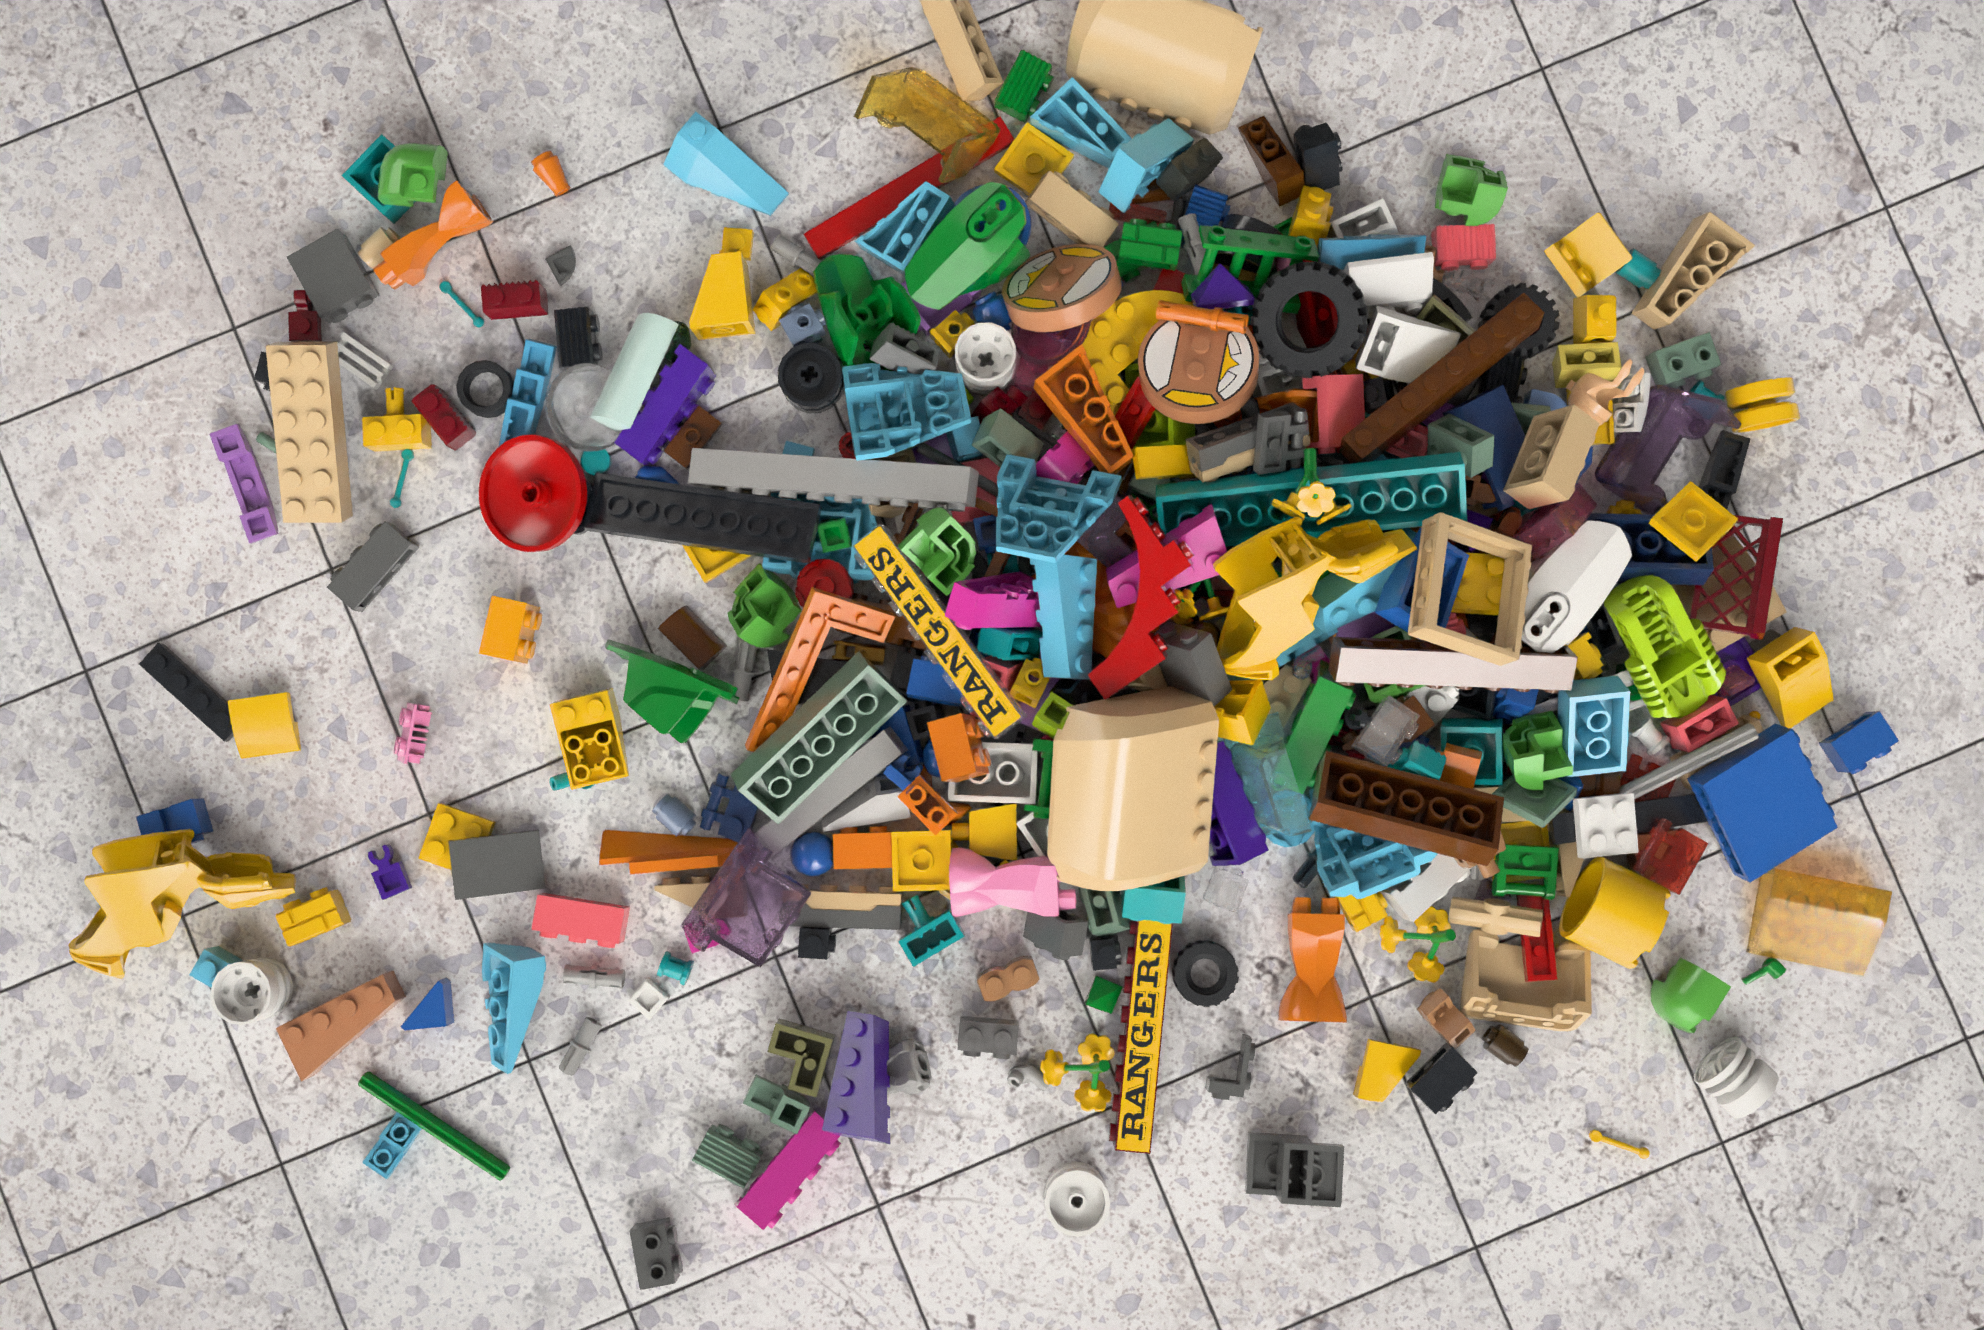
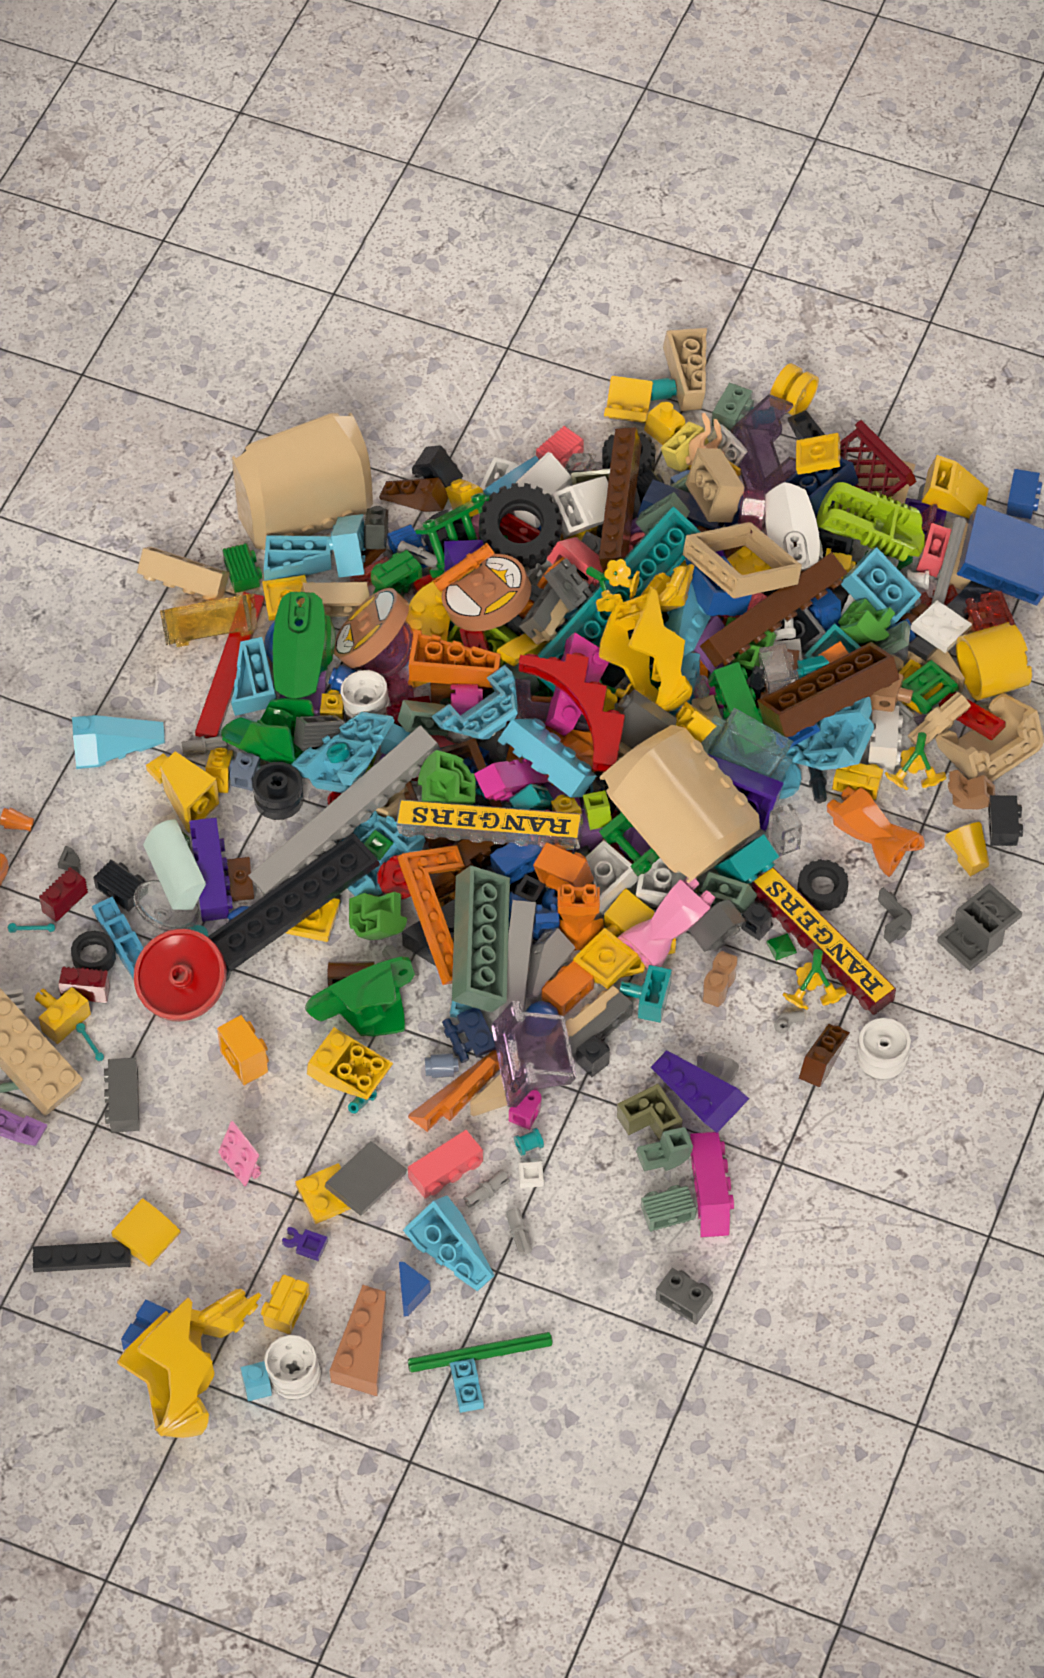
camera: 45 degrees left, 30 degrees down
(889, 402) = (338, 753): none -> teal tile
(988, 1036) = (741, 1016): flat silver brick -> none
(1022, 1145) = (823, 1055): none -> reddish brown slope
(1470, 190) = (534, 421): bright green brick -> none
(1504, 1045) = (1017, 778): dark brown brick -> none

